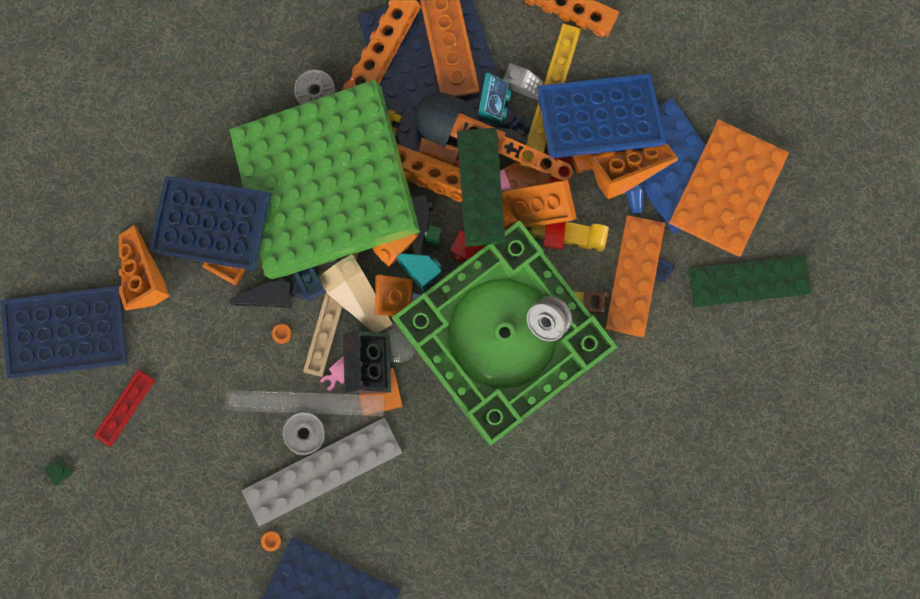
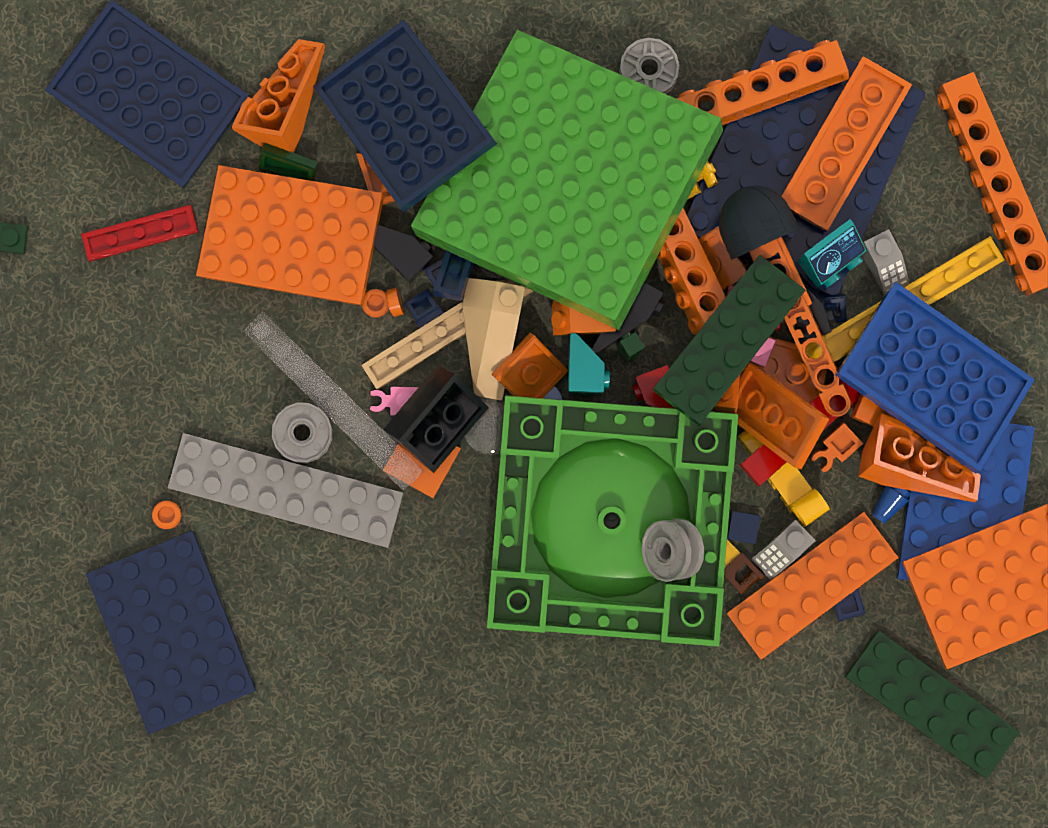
camera: 40 degrees right, 5 degrees up
(171, 303) = (287, 163): none -> dark green tile
(205, 338) = (290, 235): none -> orange plate
(291, 323) = (395, 302): none -> orange tile
(308, 313) = (423, 308): none -> dark blue tile
(574, 277) = (743, 527): none -> dark blue tile
(583, 193) = (839, 443): none -> orange plate
(604, 270) = (783, 549): none -> light grey slope

